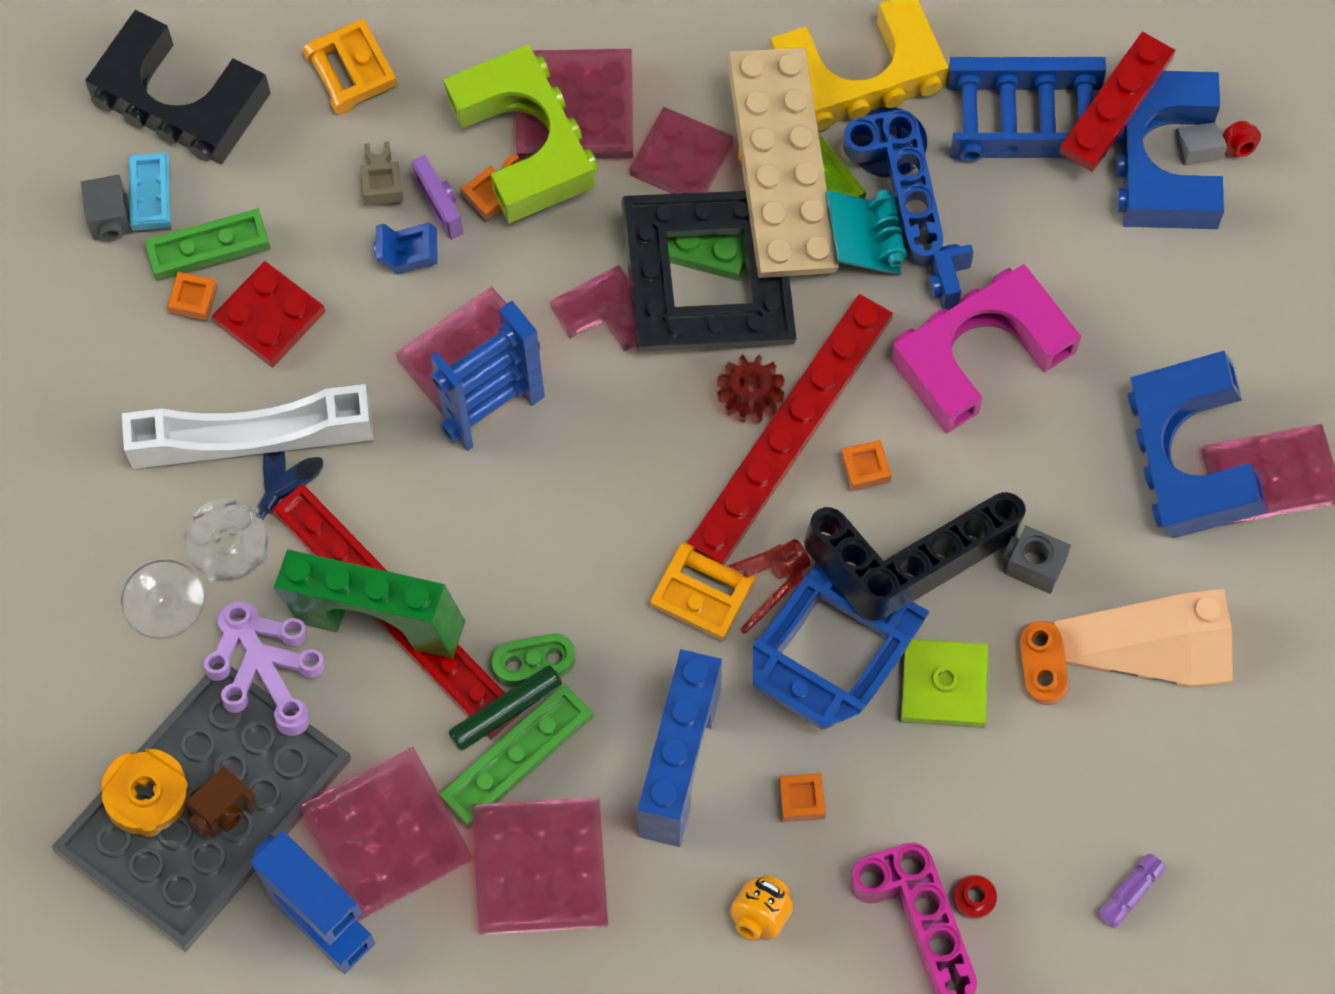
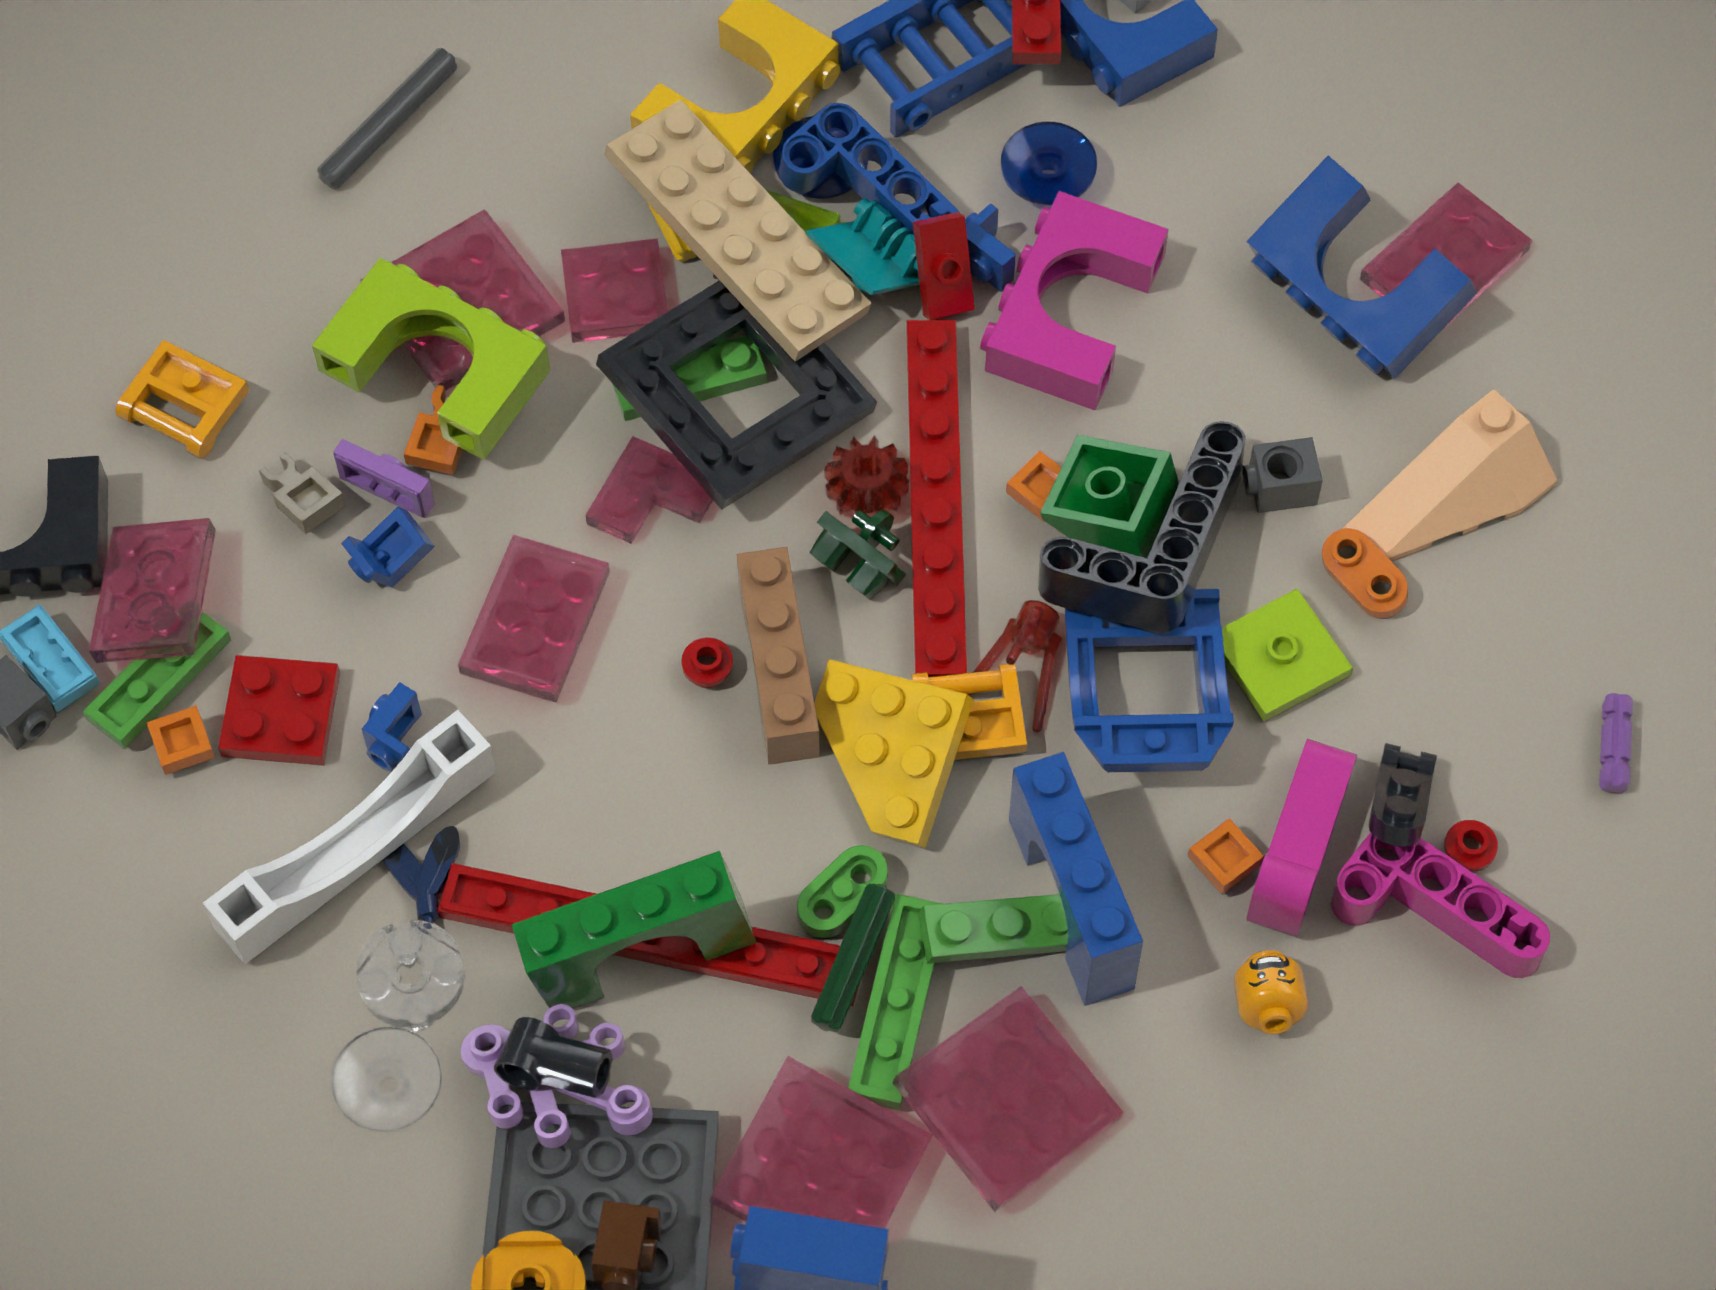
camera: 35 degrees left, 5 degrees down
(241, 185) = (152, 590): none -> clear pink plate
(260, 647) = (539, 1056): none -> black piece
(325, 366) = (388, 724): none -> blue bracket
(489, 376) = (604, 606): blue fence -> none
(558, 460) = (707, 675): none -> red plate
(592, 491) = (778, 655): none -> medium nougat arch
(604, 744) = (993, 928): none -> bright green plate
(634, 582) = (892, 745): none -> yellow plate
(704, 420) = (874, 568): none -> dark green hips
(827, 841) = (1301, 838): none -> dark pink beam
(901, 500) = (1112, 494): none -> green slope
(906, 270) = (943, 265): none -> red plate
(946, 833) = (1401, 796): none -> black plate
(1040, 224) = (1052, 148): none -> clear blue dish

